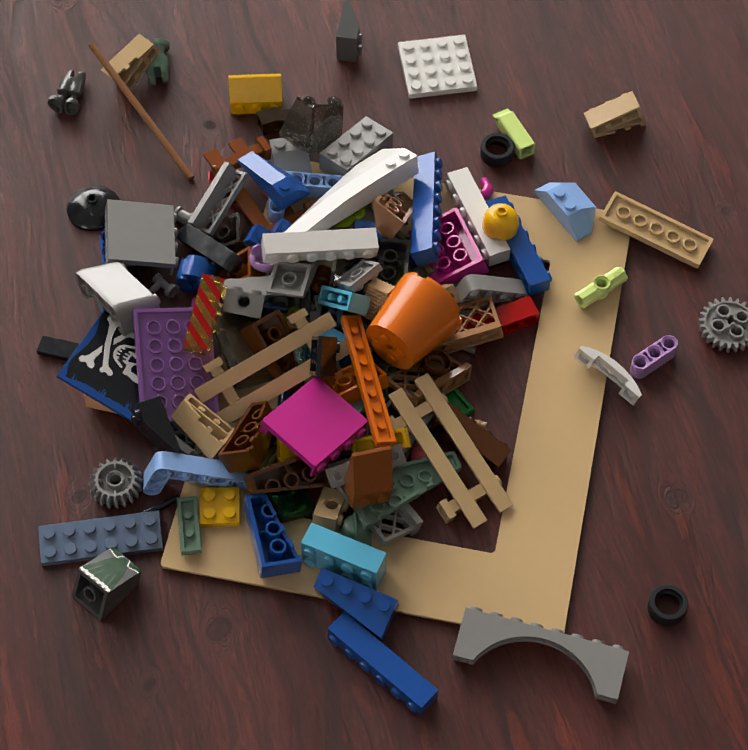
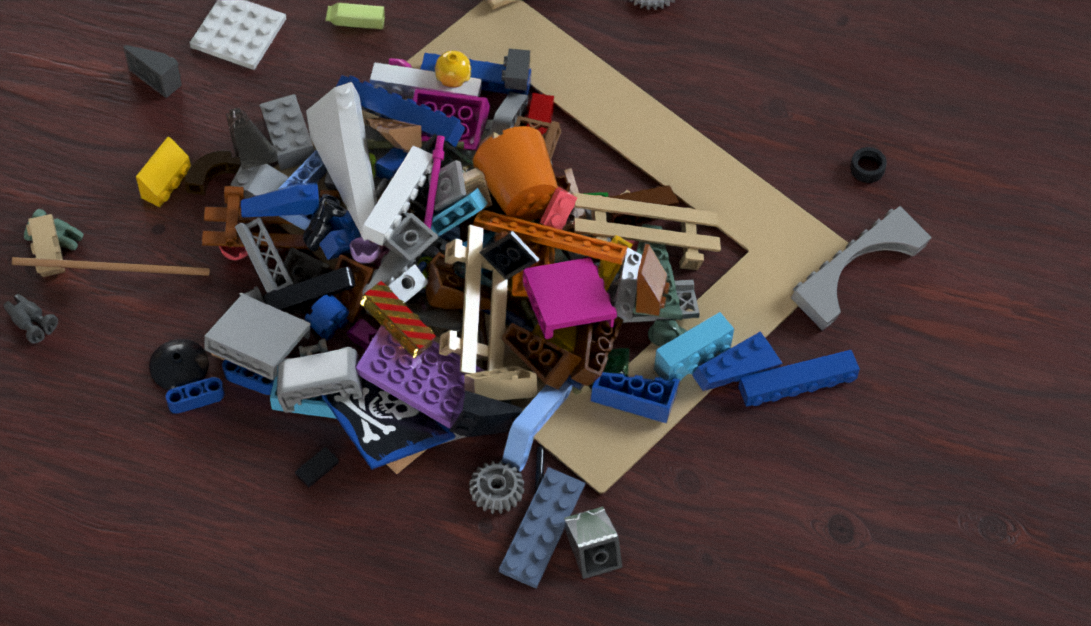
camera: 60 degrees left, 0 degrees up
(69, 231) = (186, 392): none -> blue beam
(189, 525) = (581, 449): sand green plate -> none
(219, 507) = (576, 419): yellow plate -> none
(276, 212) = (319, 225): none -> black piece
(330, 509) = (638, 339): tan brick -> none
(378, 250) = (438, 155): none -> dark pink bar
(401, 369) = (558, 209): none -> coral bracket
(497, 139) = (364, 47): black tyre -> none
(536, 267) = (517, 69): none -> dark grey brick
(569, 207) = (463, 20): light blue wedge -> none
(594, 291) = (560, 43): yellowish green piece -> none
(612, 369) = (644, 79): white slope -> none
(649, 363) = (646, 48): lavender beam -> none

